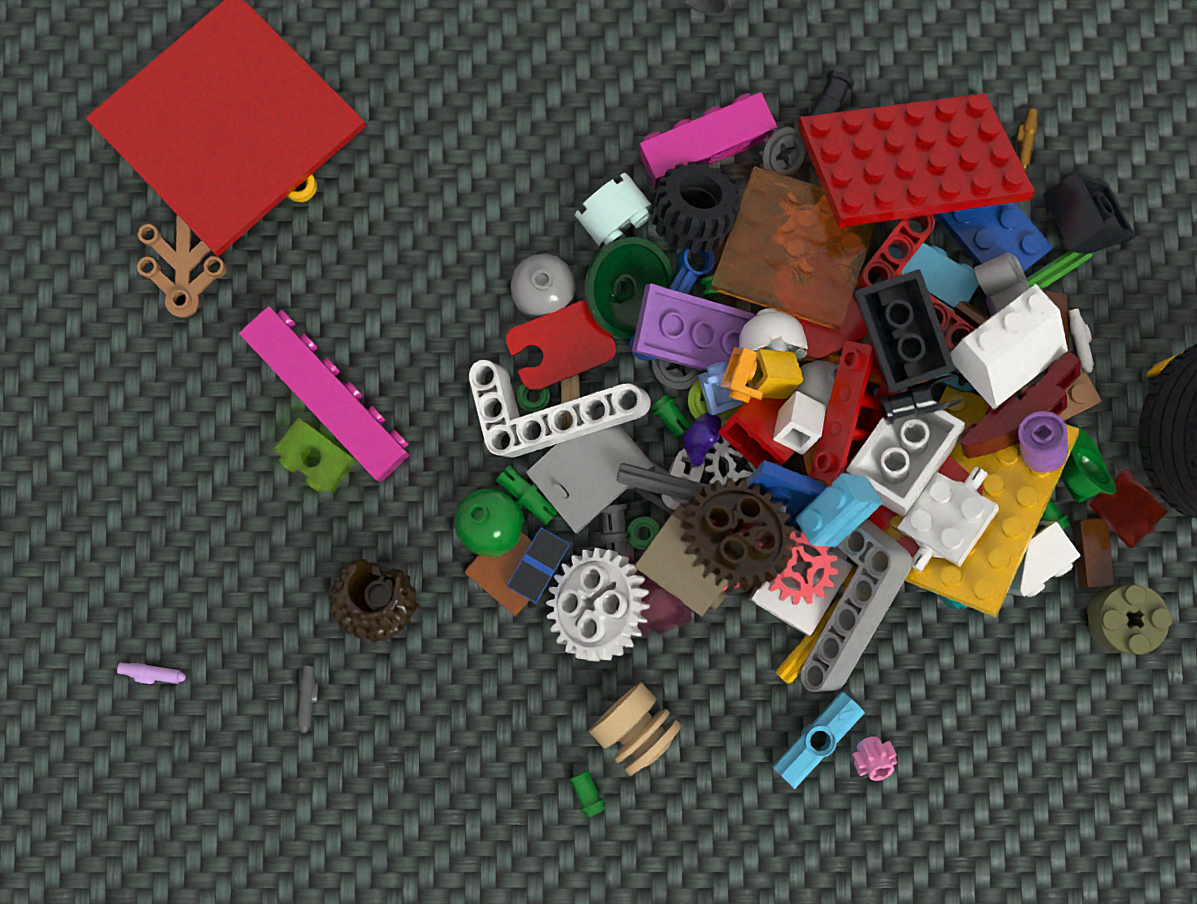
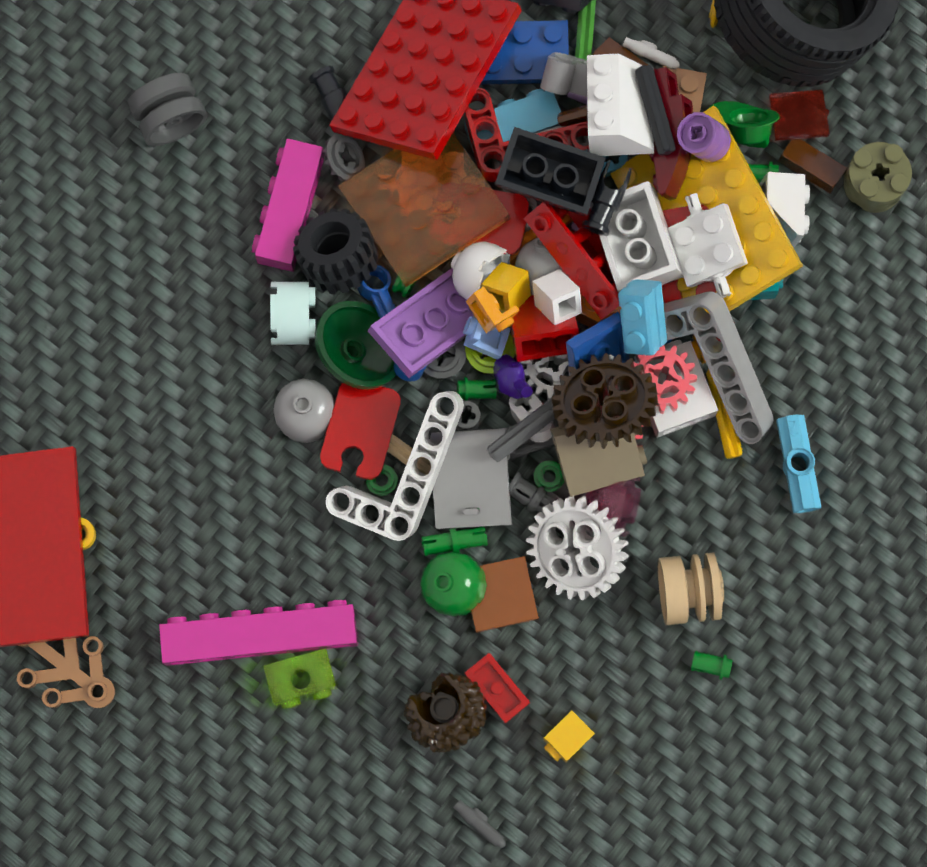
camera: 50 degrees left, 5 degrees down
(429, 626) = (497, 688): none -> red plate
(431, 718) = (567, 737): none -> yellow brick
(538, 565) = (513, 571): black tile -> none
(635, 434) = (475, 414): none -> dark grey bush
(875, 758) = (842, 433): bright pink gear -> none
(1034, 381) = (655, 110): none -> black axle

